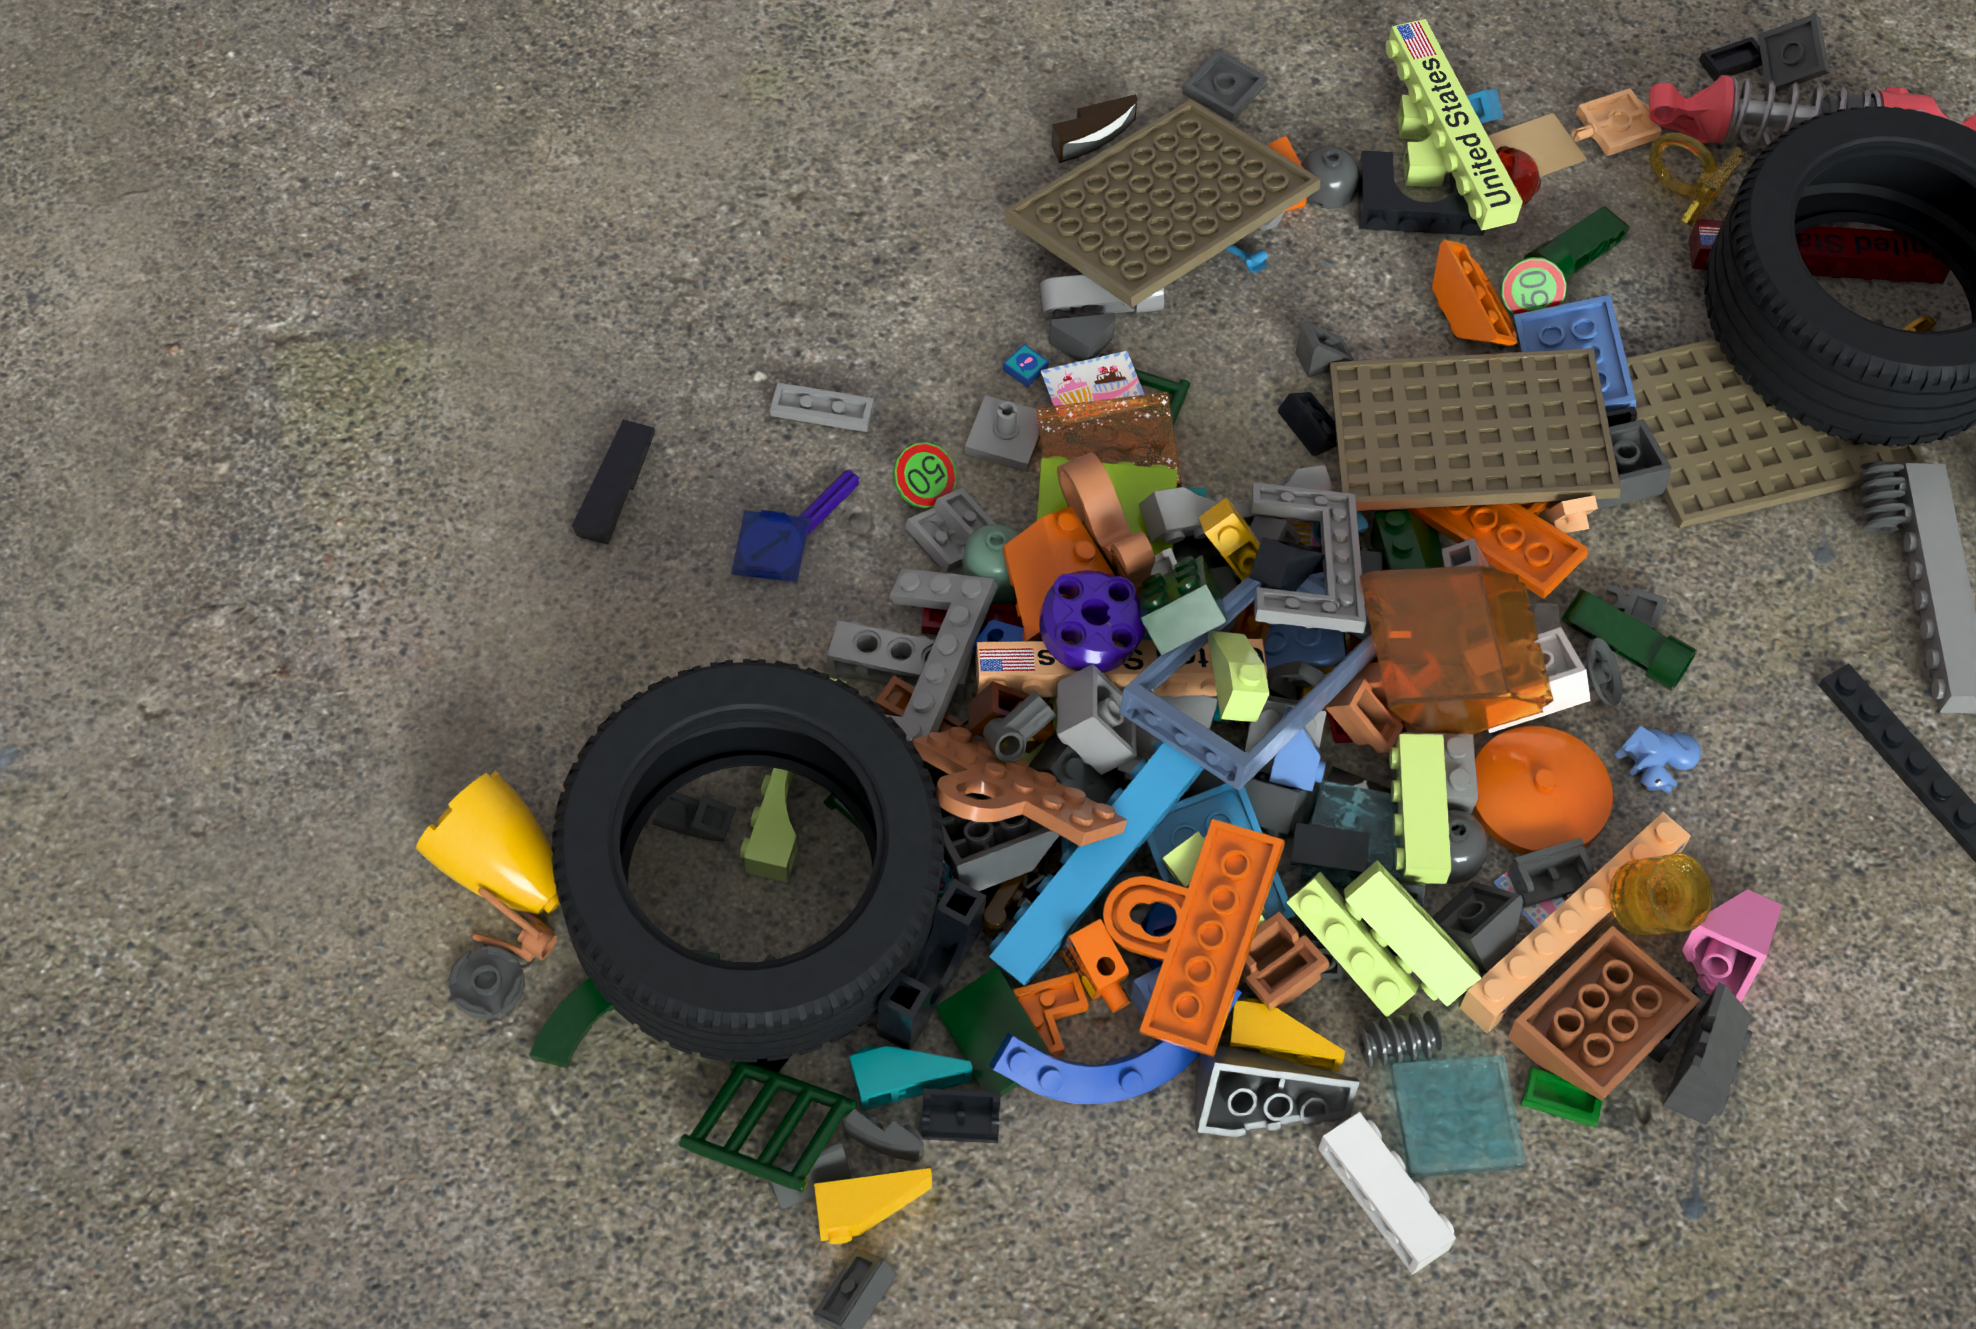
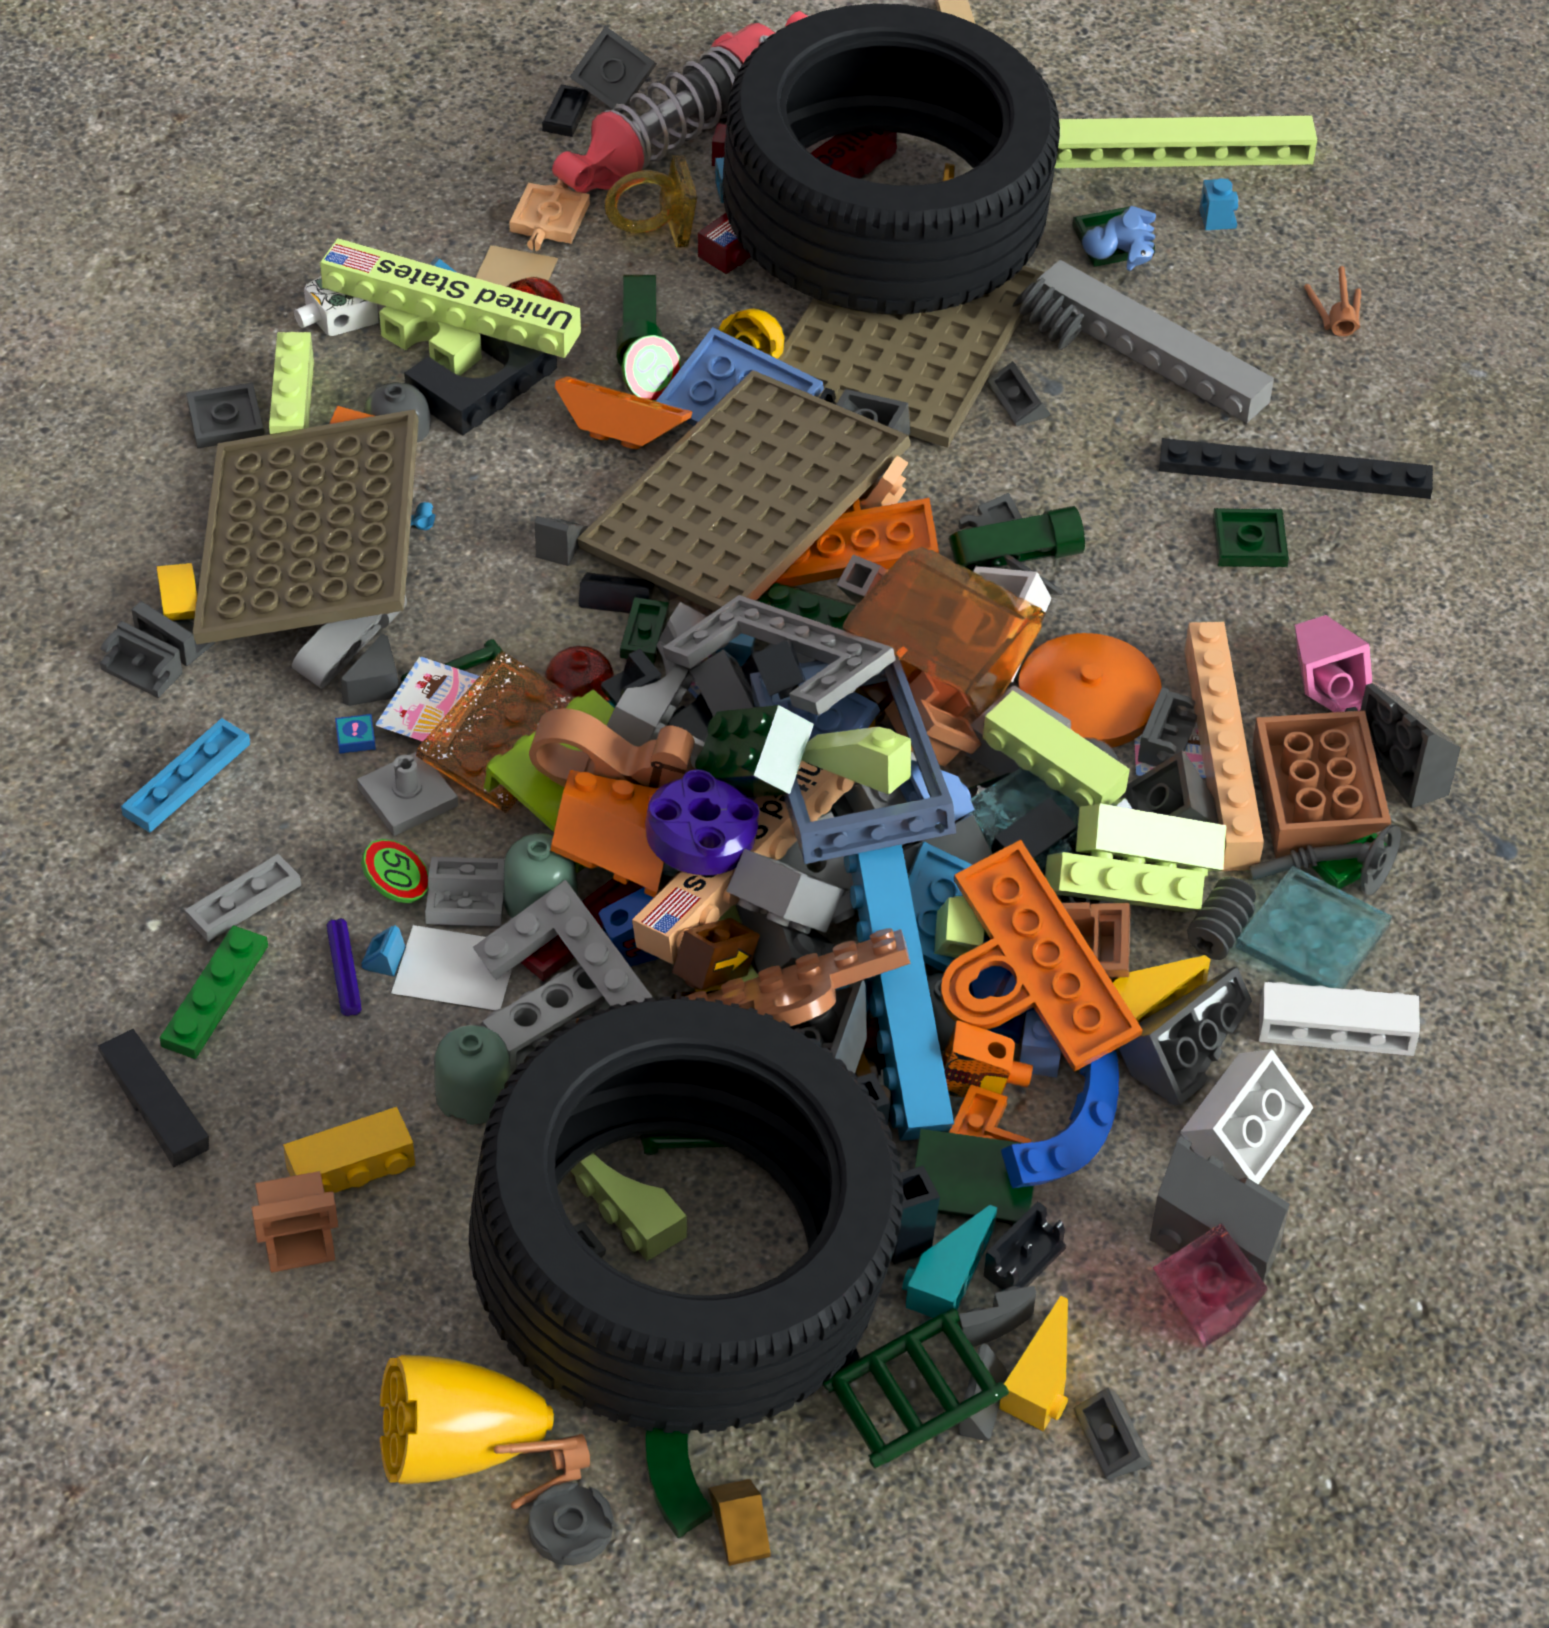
camera: 50 degrees left, 10 degrees down
(572, 1087) = (740, 1521): none -> pearl gold slope
(578, 634) = (295, 1221): none -> nougat plate
(664, 626) = (354, 1151): none -> yellow brick
(733, 450) = (213, 992): none -> green plate
(770, 545) = (346, 1026): clear blue piece -> none
(793, 637) = (470, 1072): none -> sand green cylinder
(856, 523) = (384, 952): none -> dark azure slope
(873, 567) = (448, 970): none -> white sticker
(892, 298) = (185, 775): none -> dark azure plate
(962, 201) = (141, 659): none -> dark grey hinge
(1003, 194) = (175, 633): none -> dark grey panel
(1019, 725) = (745, 954): dark grey piece -> none
(1027, 1268) = (1211, 1284): none -> clear pink slope
(1038, 173) = (177, 591): none -> yellow slope
(1093, 127) = (168, 524): dark brown slope -> none
(1094, 1233) = (1202, 1195): none -> dark grey wedge
(1206, 458) = (579, 670): none -> clear red cylinder
(1208, 485) = (636, 673): none -> black panel
(1226, 1190) = (1248, 1115): none -> white slope
(1231, 536) = (704, 690): yellow slope -> none
(1282, 463) = (644, 627): none -> dark green plate
(1284, 99) = (291, 382): none -> yellowish green brick
(1381, 71) = (334, 311): none -> white torso
(1564, 1107) = (1373, 856): none -> dark grey dish
(1638, 326) = (756, 329): none -> yellow cylinder
(1654, 750) = (1128, 600): medium blue animal -> none
(1661, 895) = (1265, 666): clear yellow wheel -> none
(1785, 537) = (1017, 395): none -> dark grey slope
(1817, 797) = (1250, 537): none -> dark green tile

